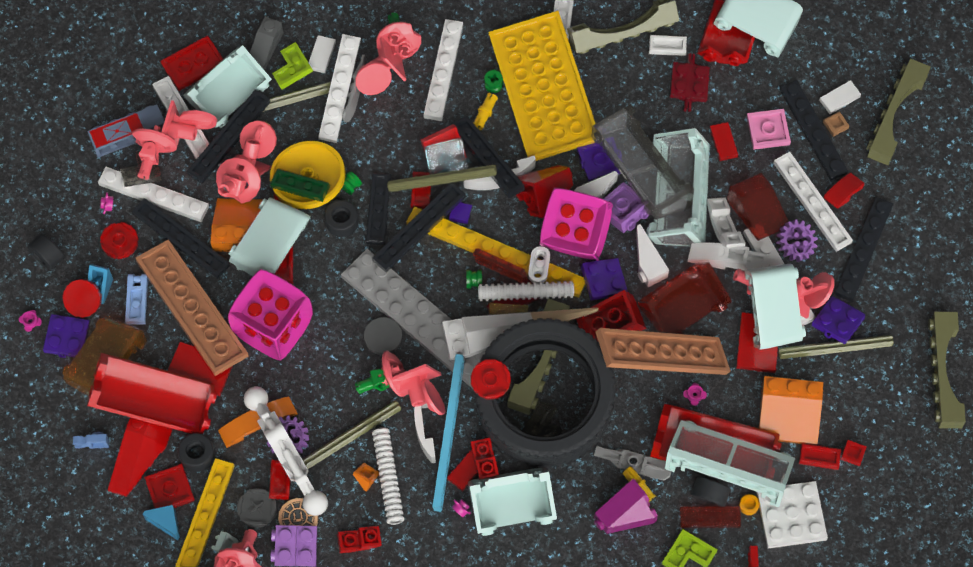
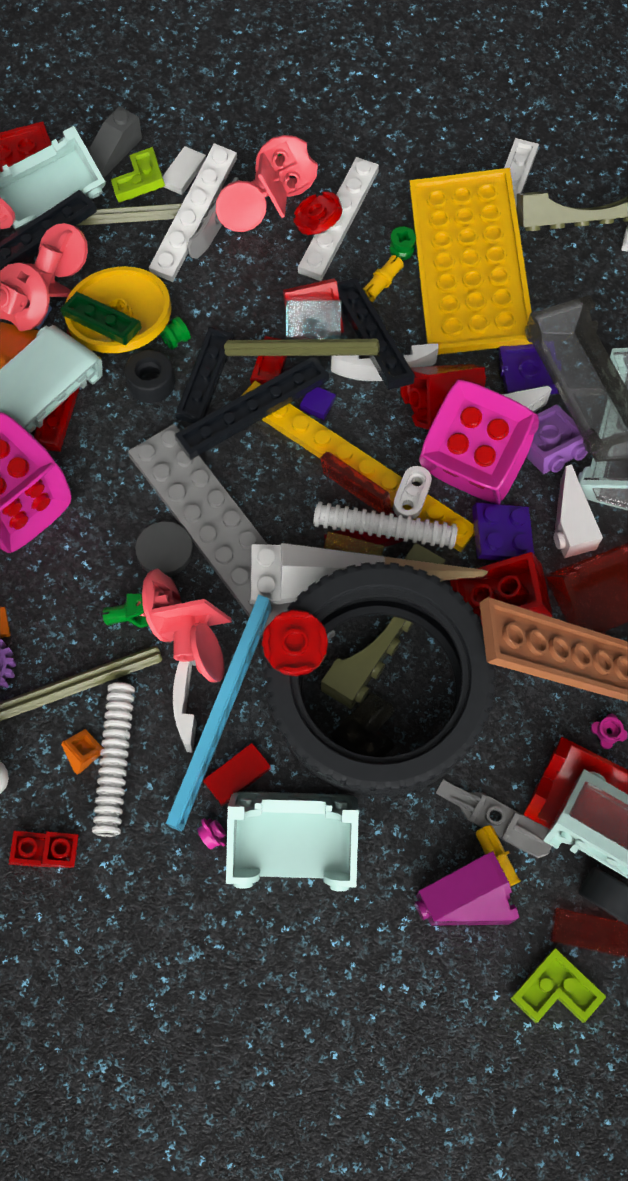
camera: 10 degrees right, 0 degrees up
(428, 71) = (317, 213): none -> red tile
(473, 278) = (313, 493): green wheel -> none
(484, 458) = (265, 763): red slope -> none

